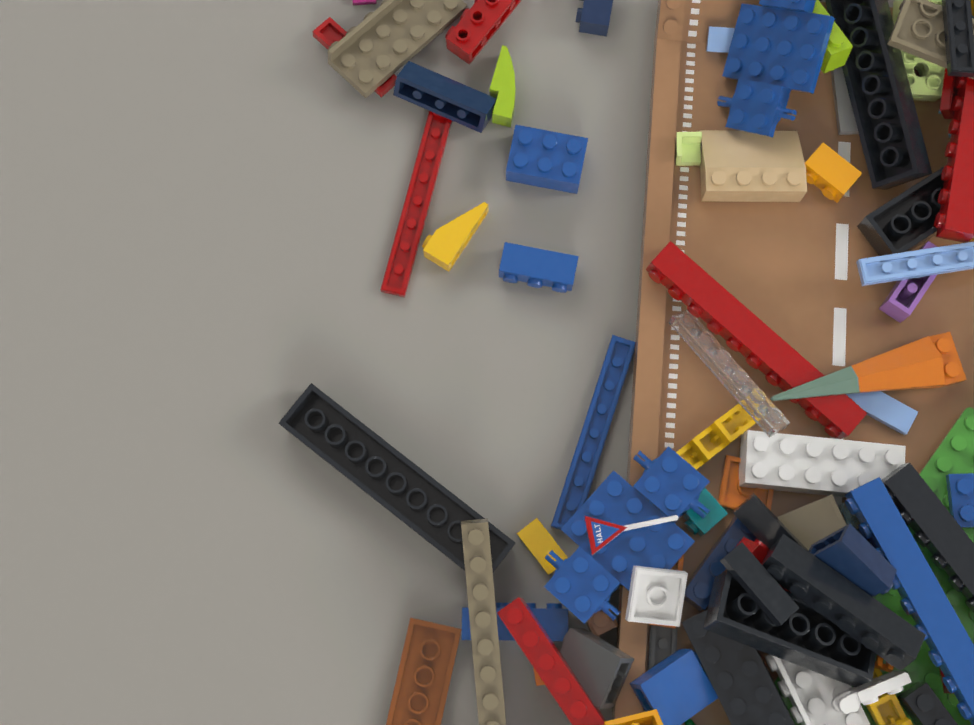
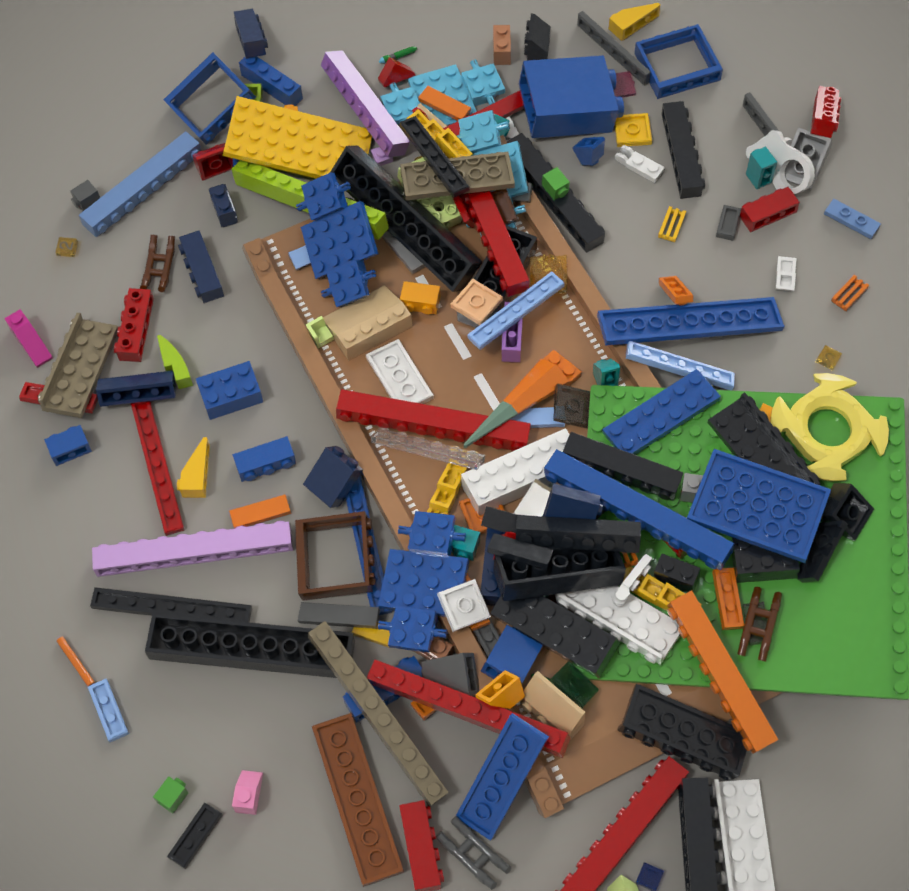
camera: 30 degrees left, 15 degrees down
(205, 382) = (75, 661): none -> orange bar
(208, 459) = (108, 710): none -> light blue tile
(219, 599) = (171, 794): none -> bright green brick
(220, 660) = (194, 835): none -> black tile
(301, 647) = (247, 792): none -> bright pink slope
(333, 121) = (68, 445): none -> blue brick
(339, 382) = (161, 604): none -> black plate
(400, 327) = (192, 548): none -> lavender brick
(497, 326) = (260, 511): none -> orange tile
(514, 410) = (331, 522): none -> reddish brown window
(514, 505) = (339, 615): none -> dark grey tile
(601, 337) = (333, 476): none -> dark blue brick
(603, 532) = (405, 588): piece -> none
(749, 255) = (399, 373): none -> white tile
(894, 222) = (476, 302): none -> light nougat tile
(929, 417) = (571, 405): none -> clear smoke tile

